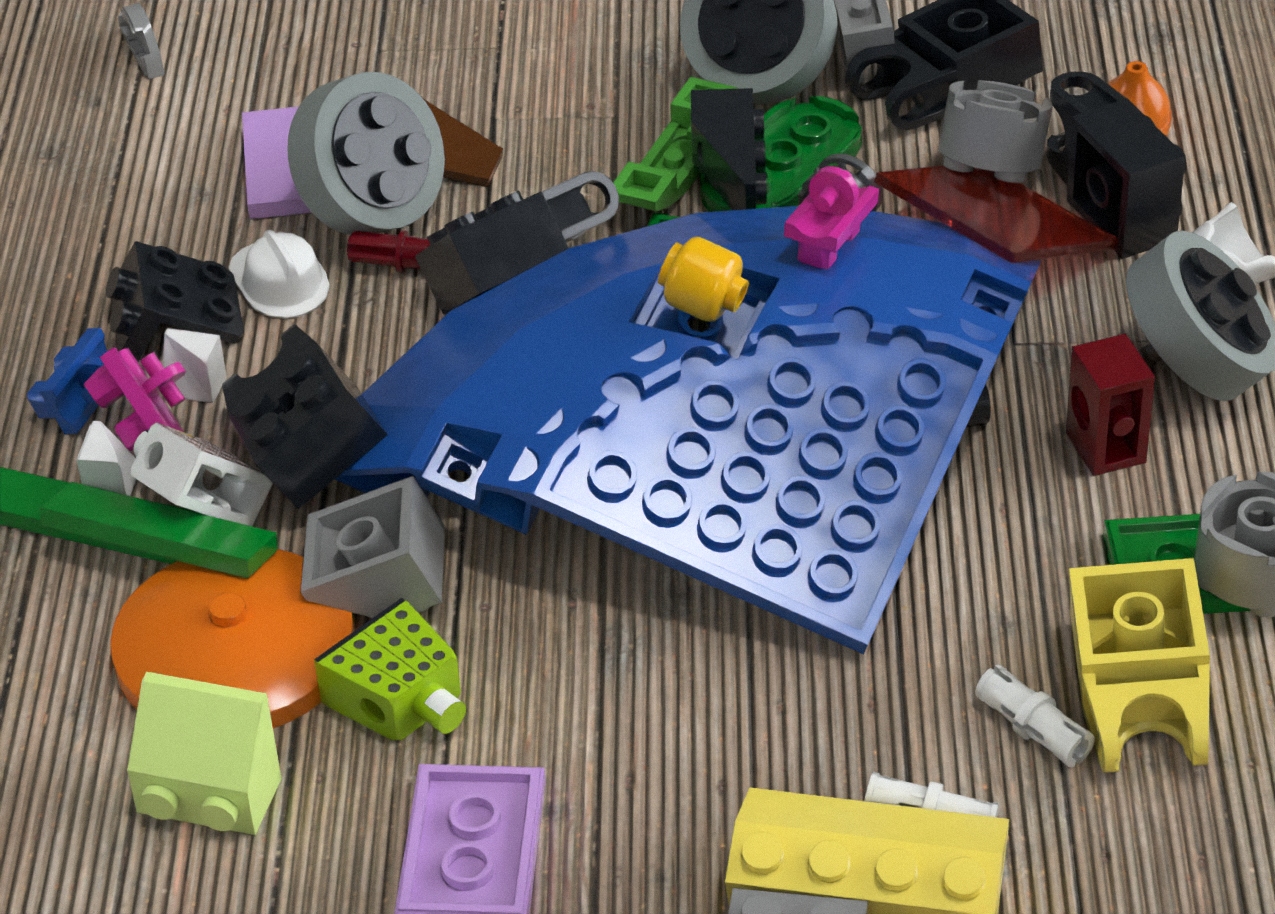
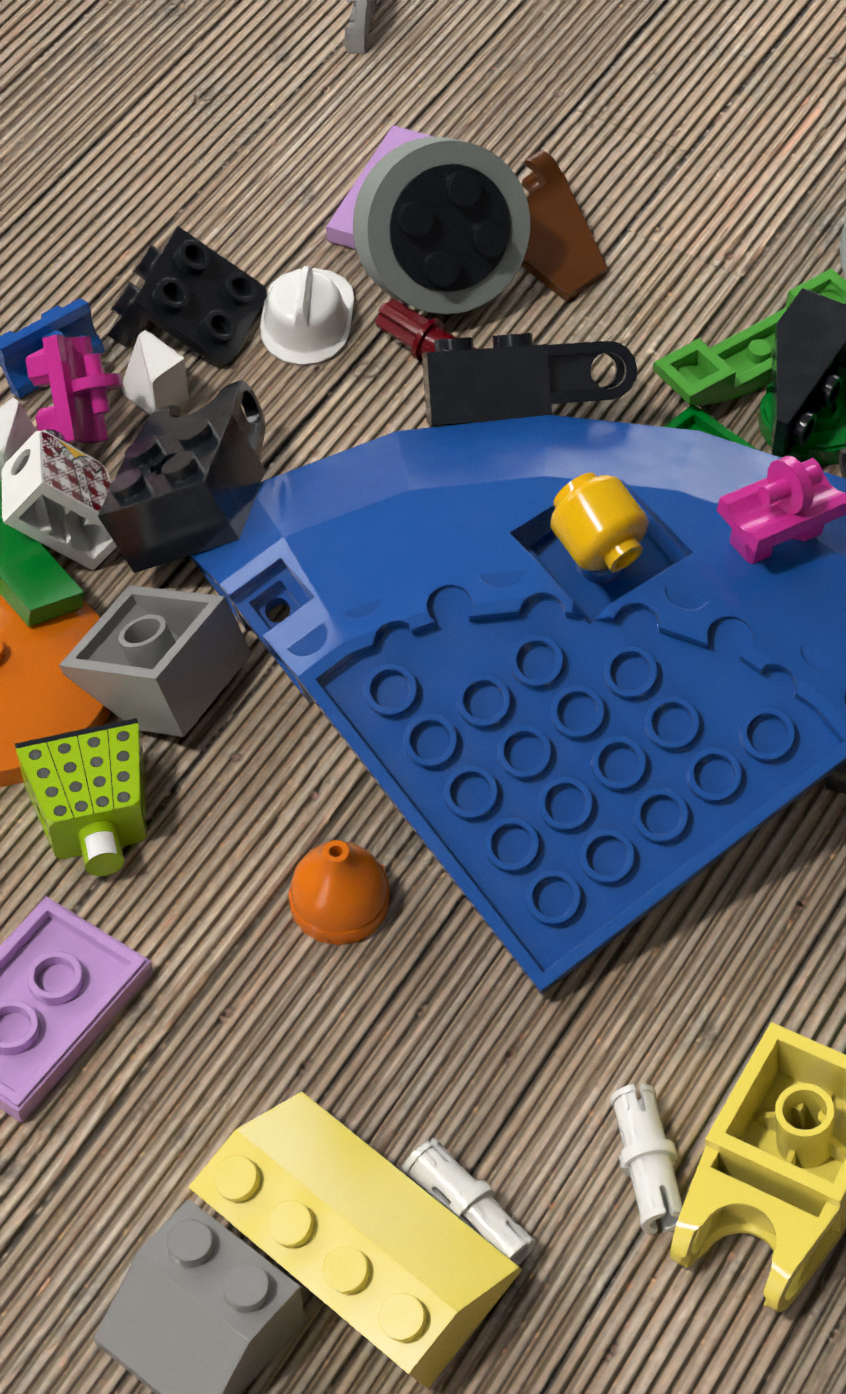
camera: 30 degrees right, 10 degrees up
(654, 653) = (339, 893): none -> orange helmet

